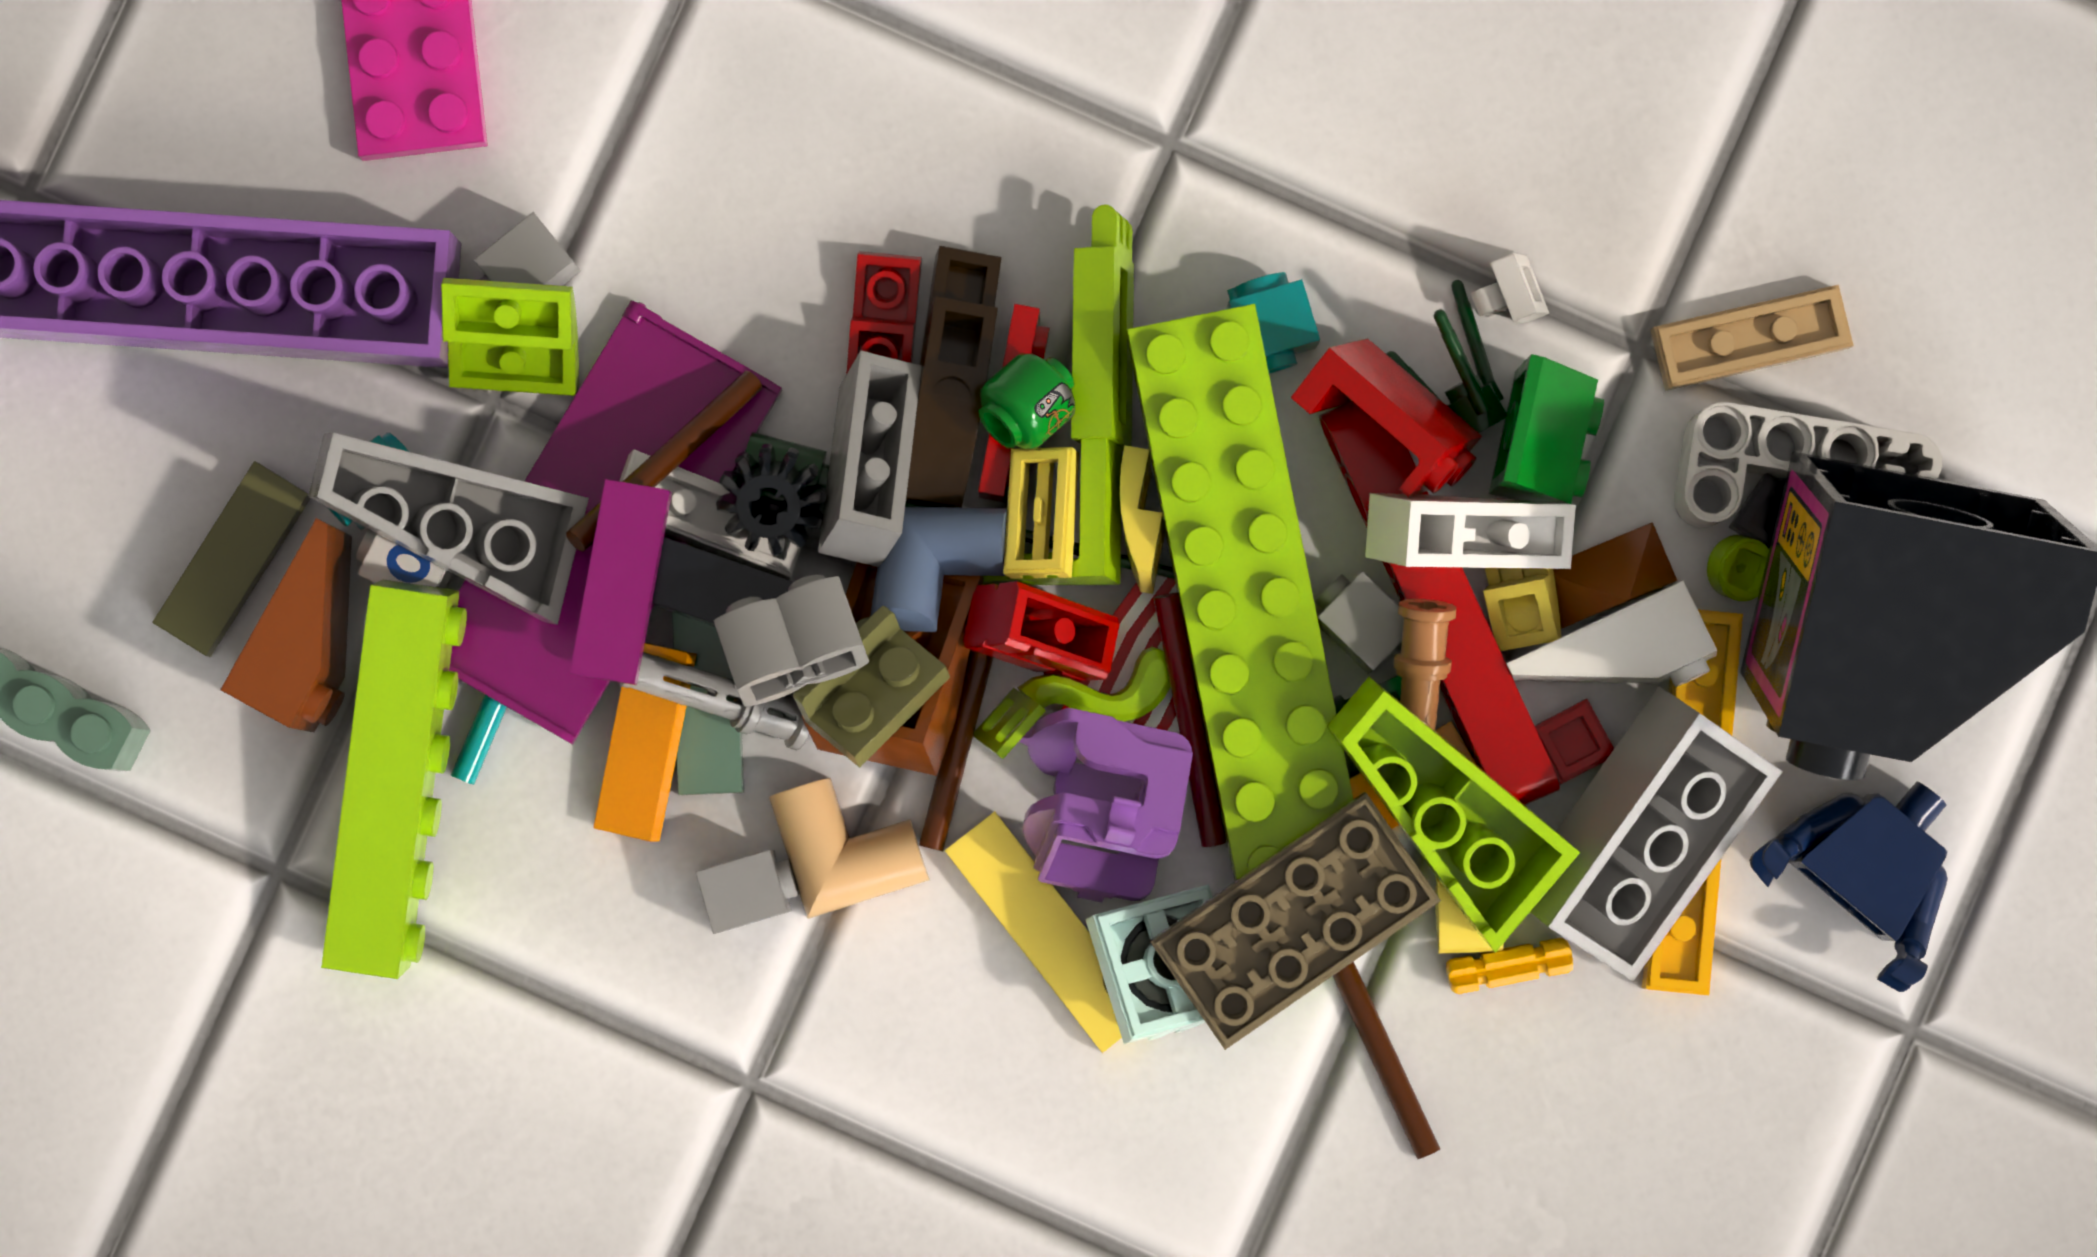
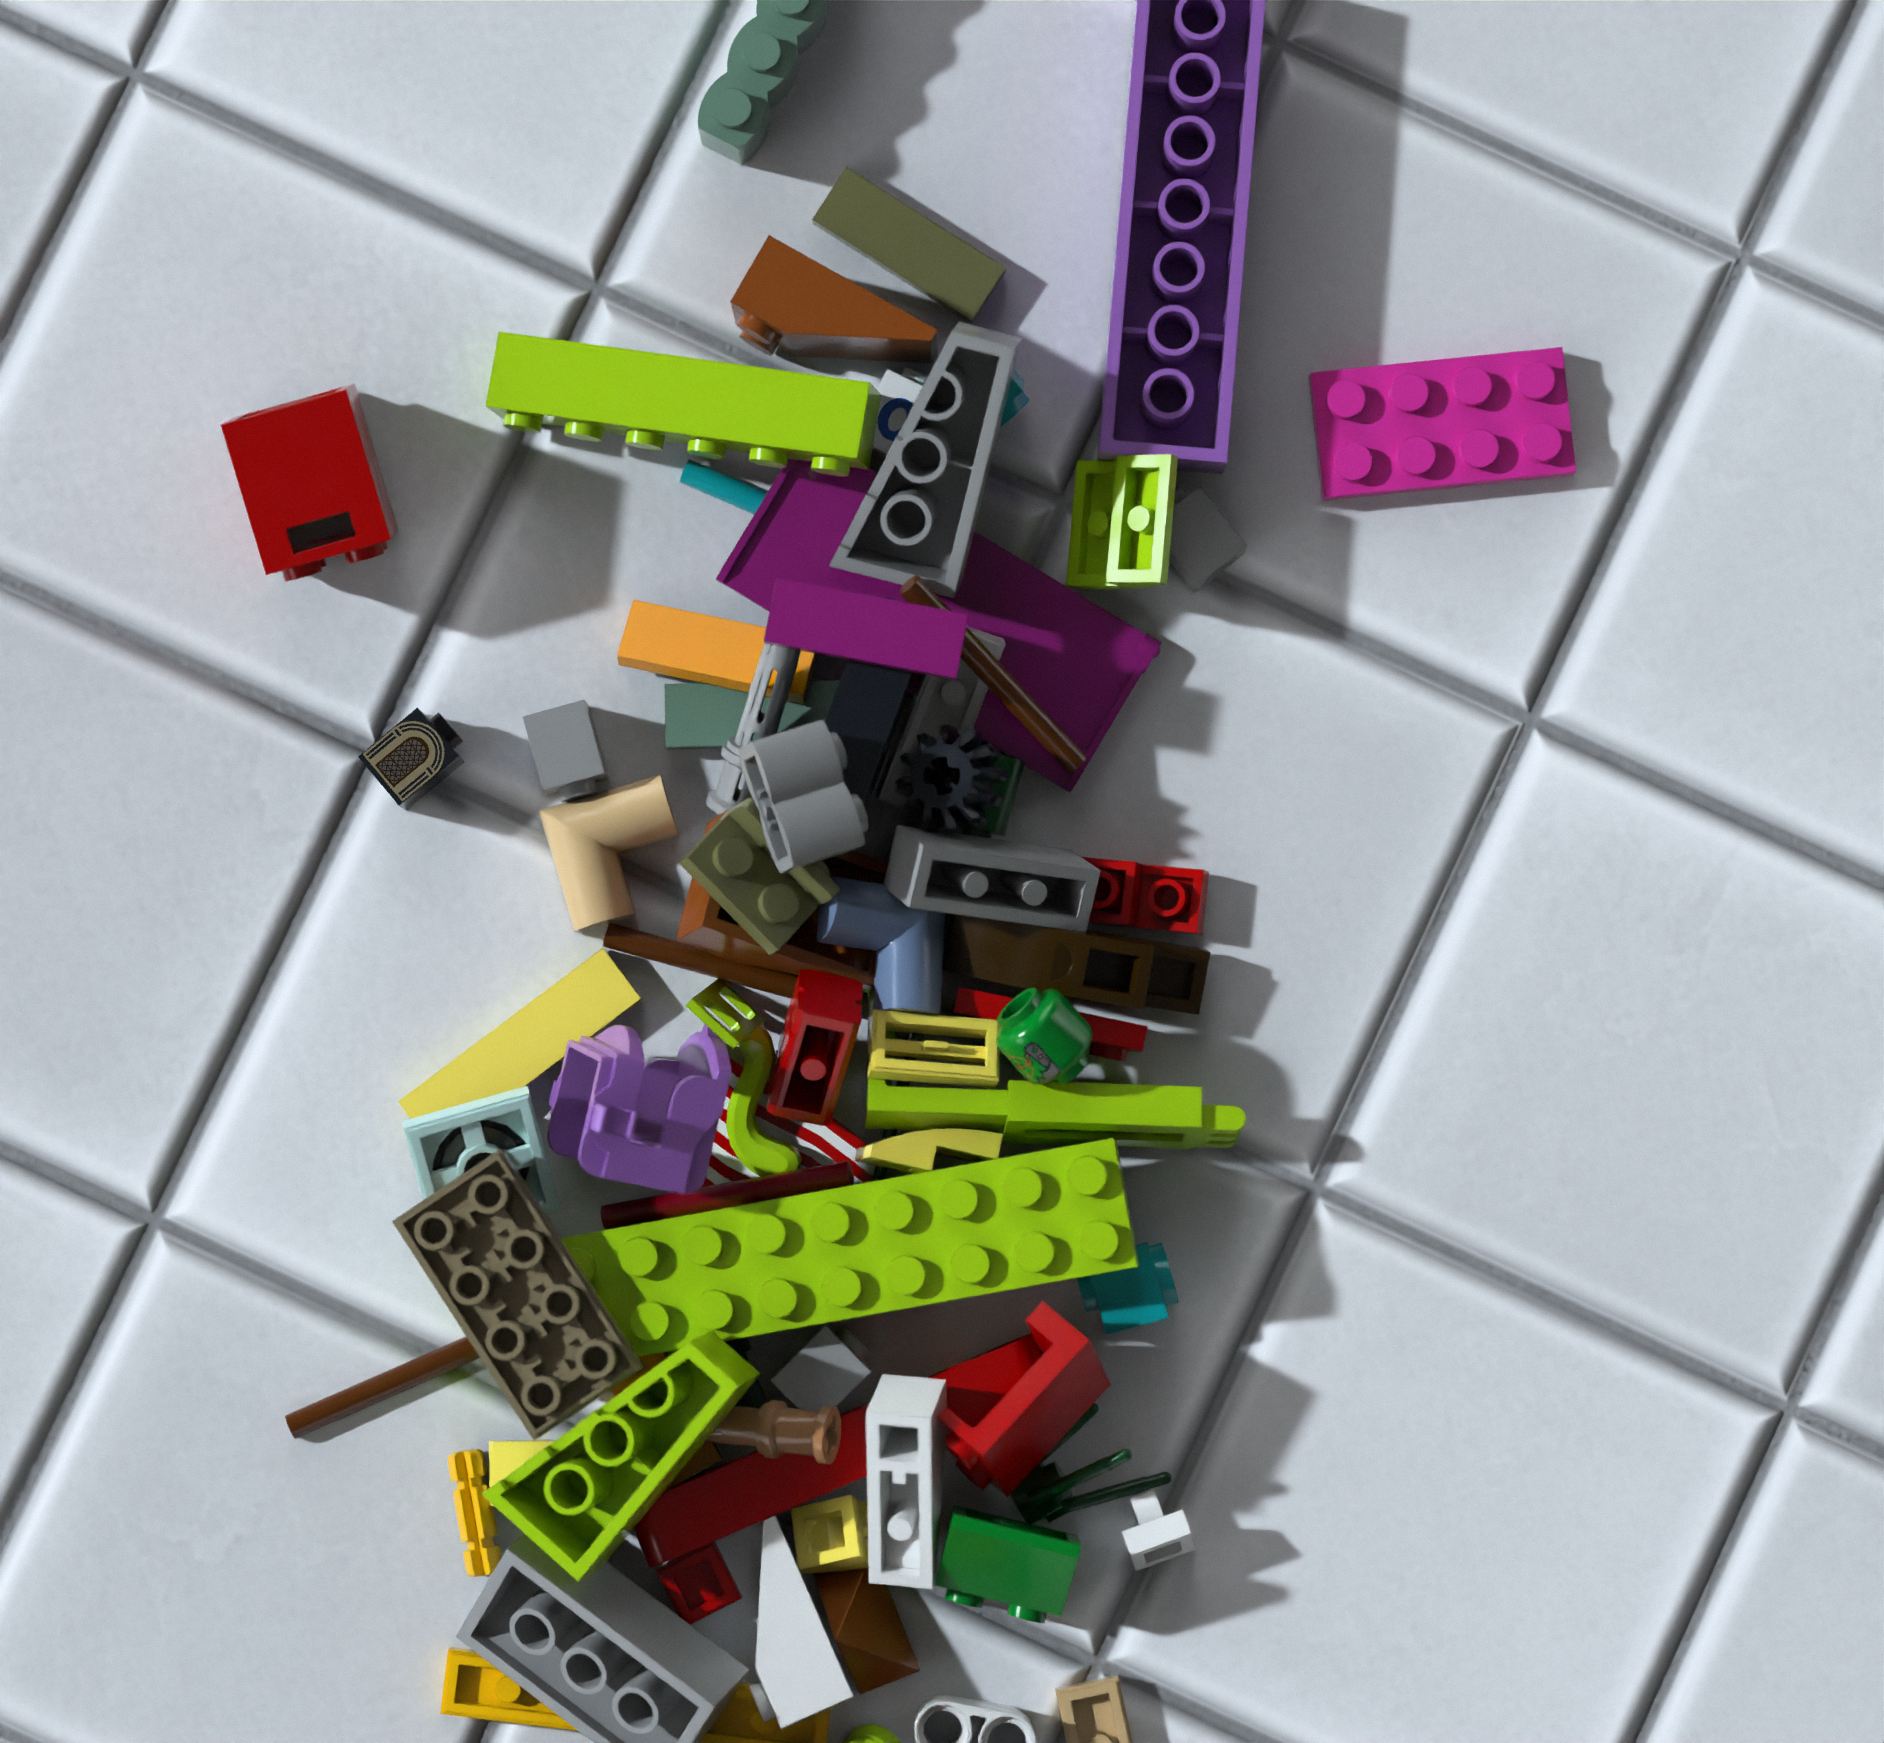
camera: 90 degrees right, 0 degrees up
(460, 1158) = (308, 465): none -> red container
(754, 1044) = (414, 757): none -> brick

